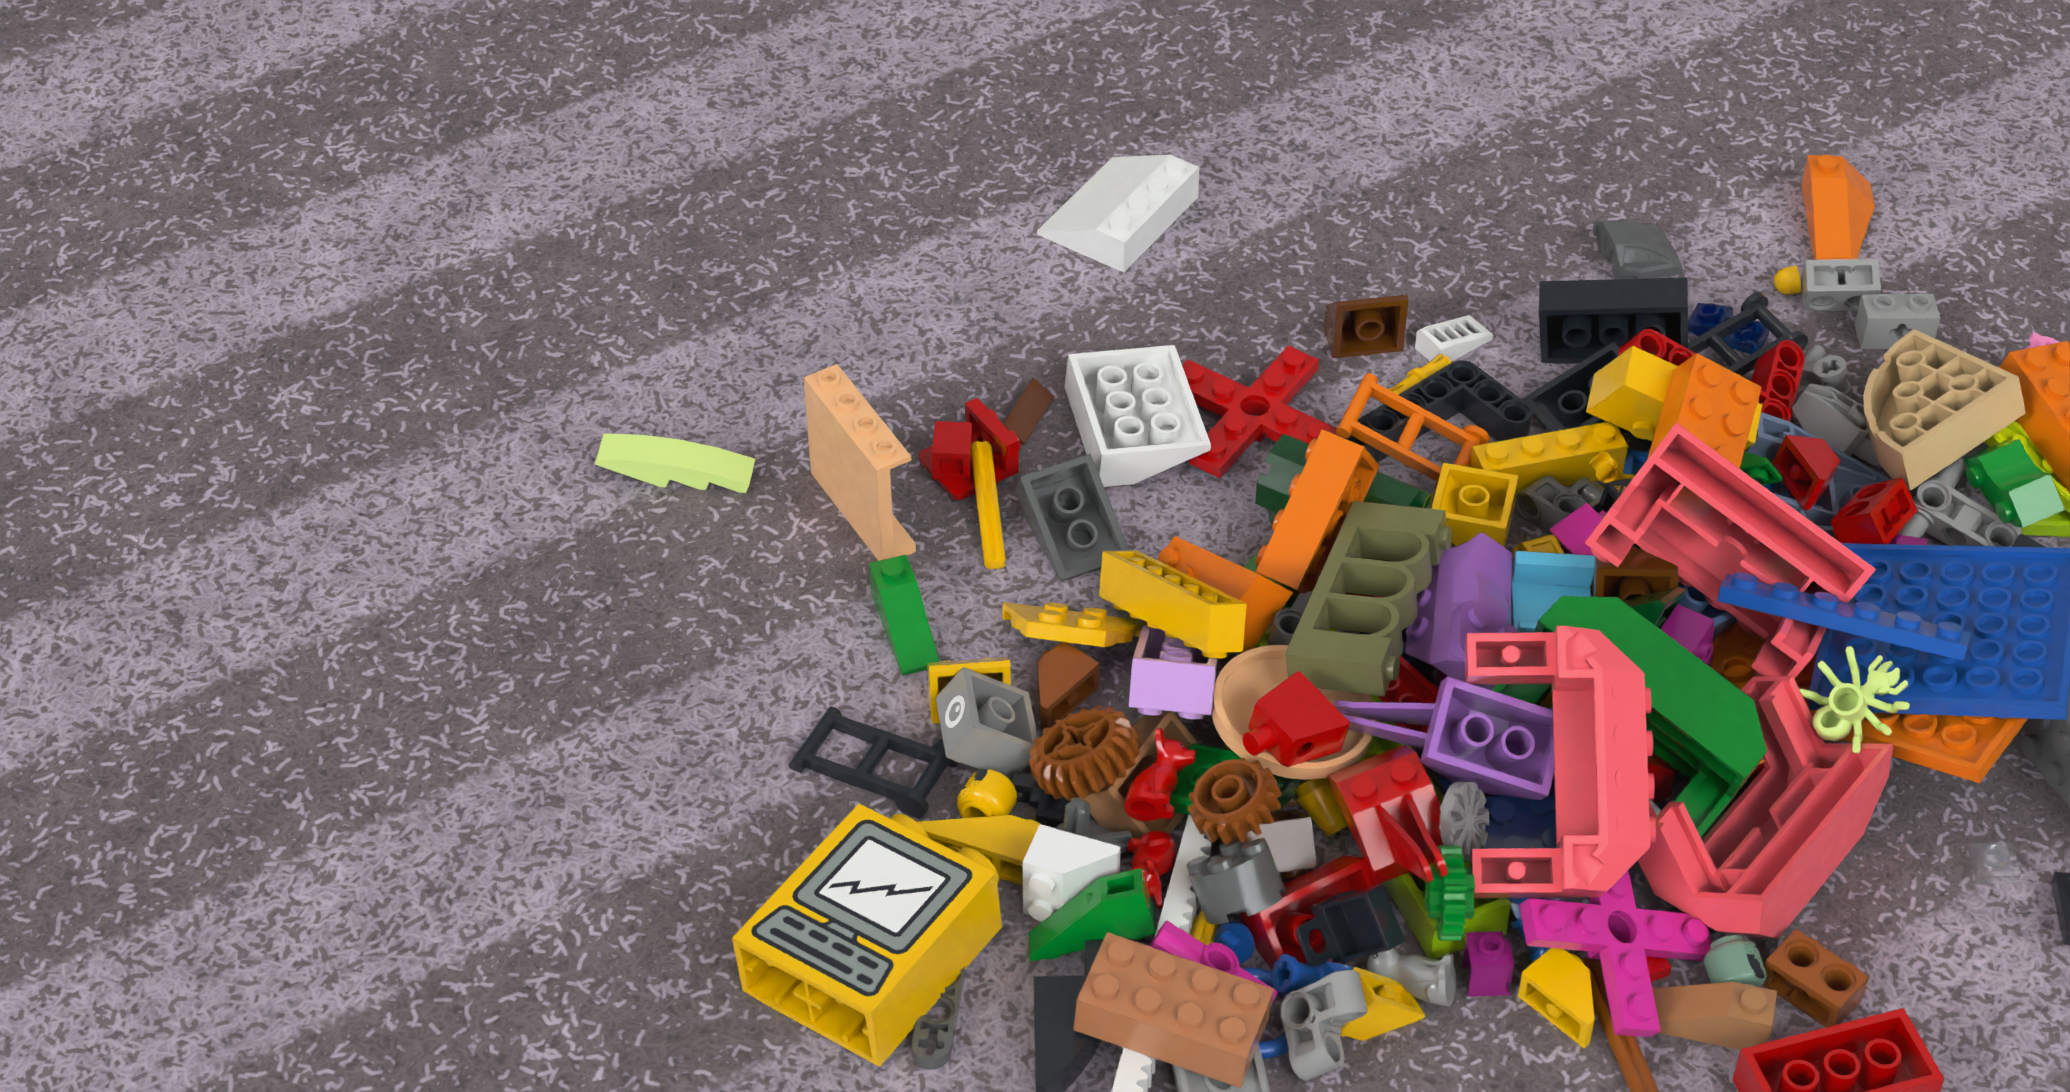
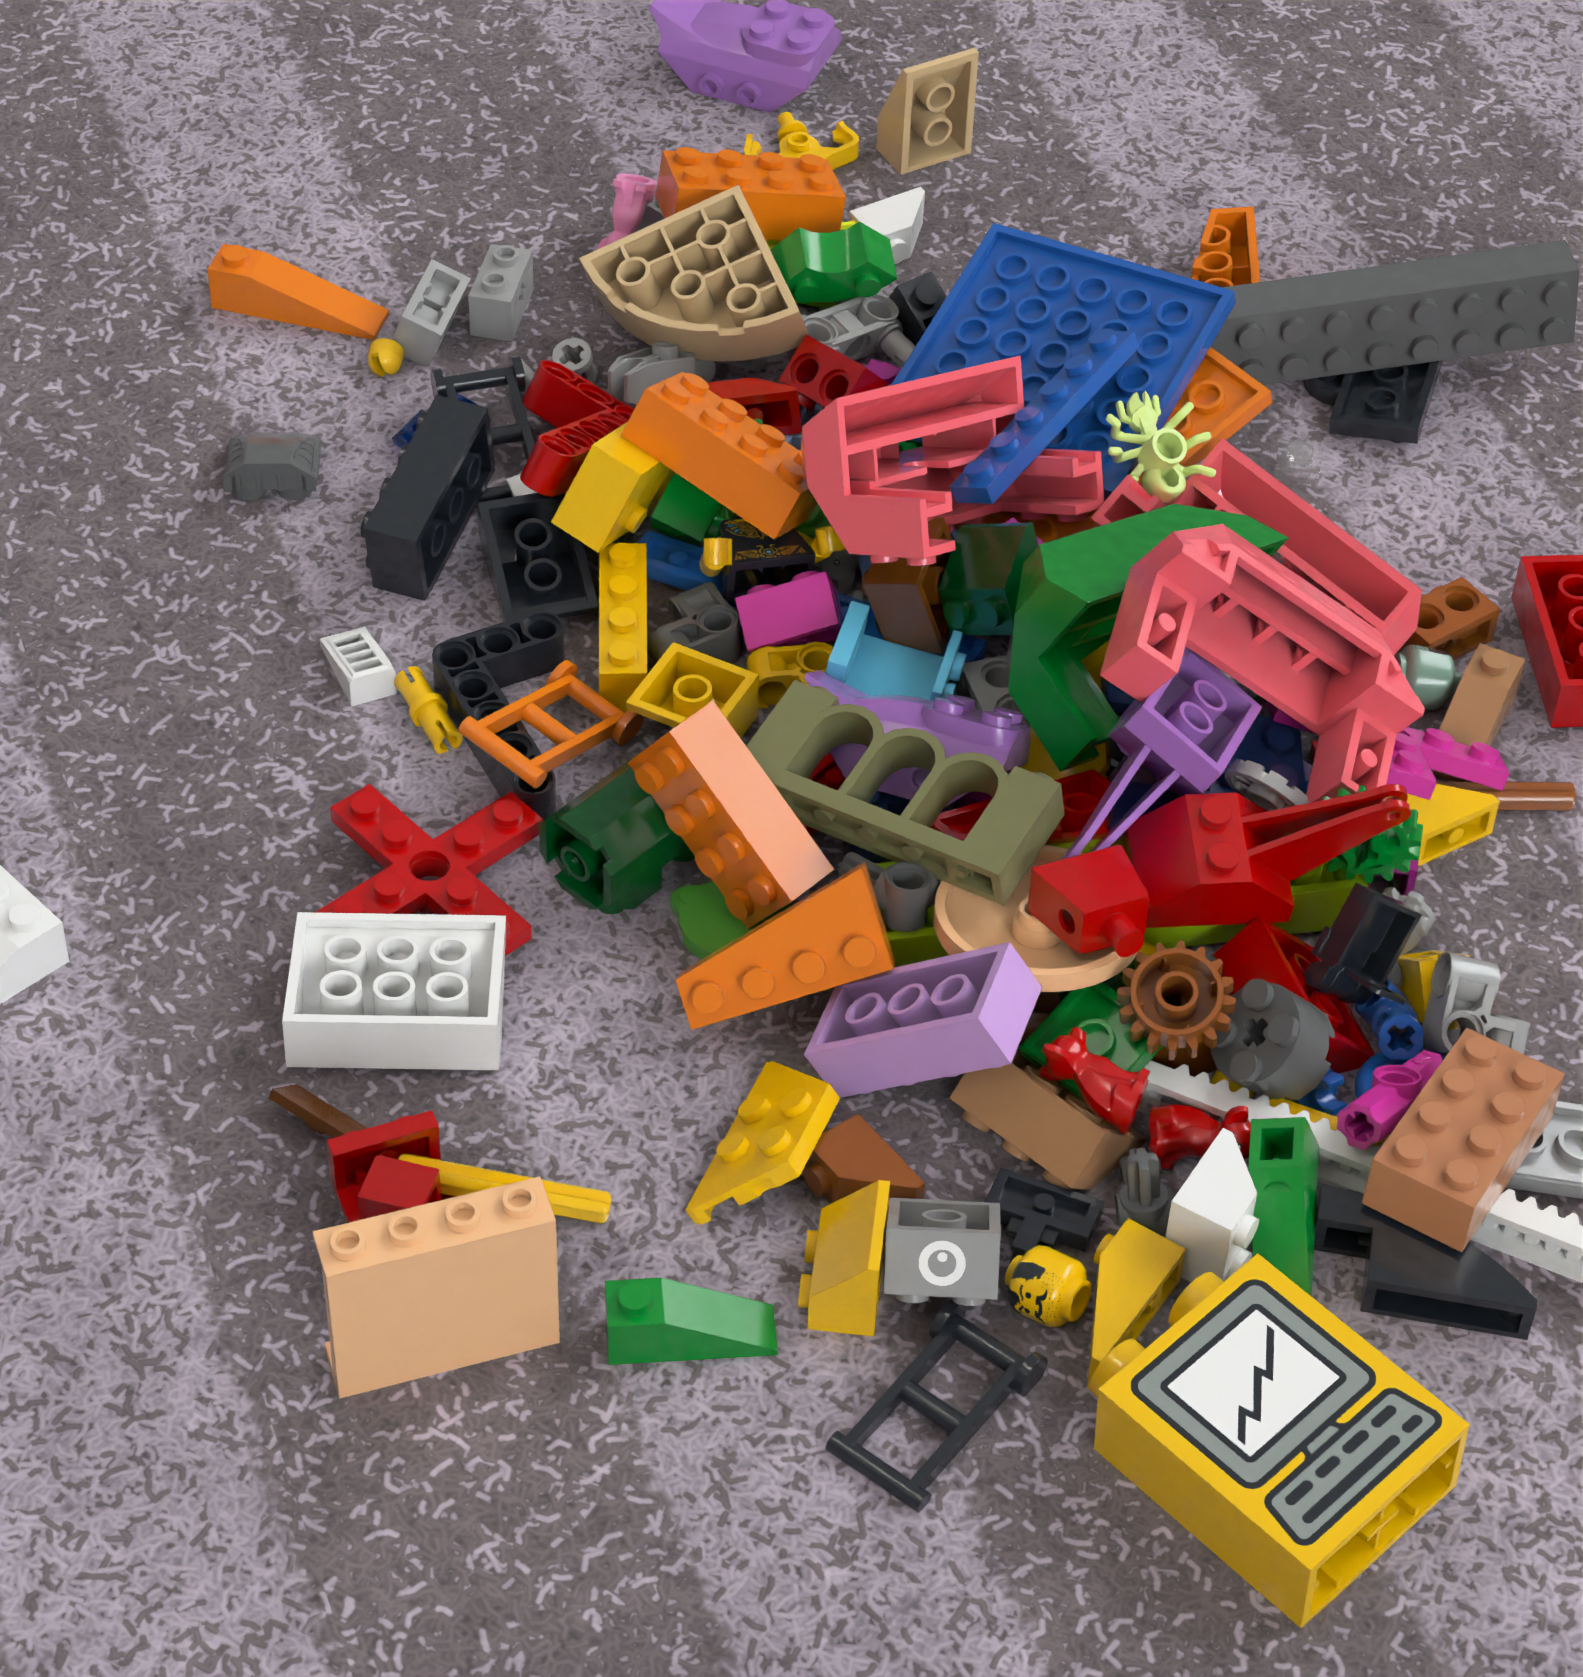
camera: 80 degrees left, 0 degrees up
(666, 459) = (273, 1559): yellowish green slope -> none
(1070, 516) = (558, 1101): dark grey slope -> none
(1084, 752) = (1019, 1153): dark orange gear -> none
(1173, 602) = (822, 992): yellow brick -> none
(1366, 326) = (313, 725): reddish brown slope -> none

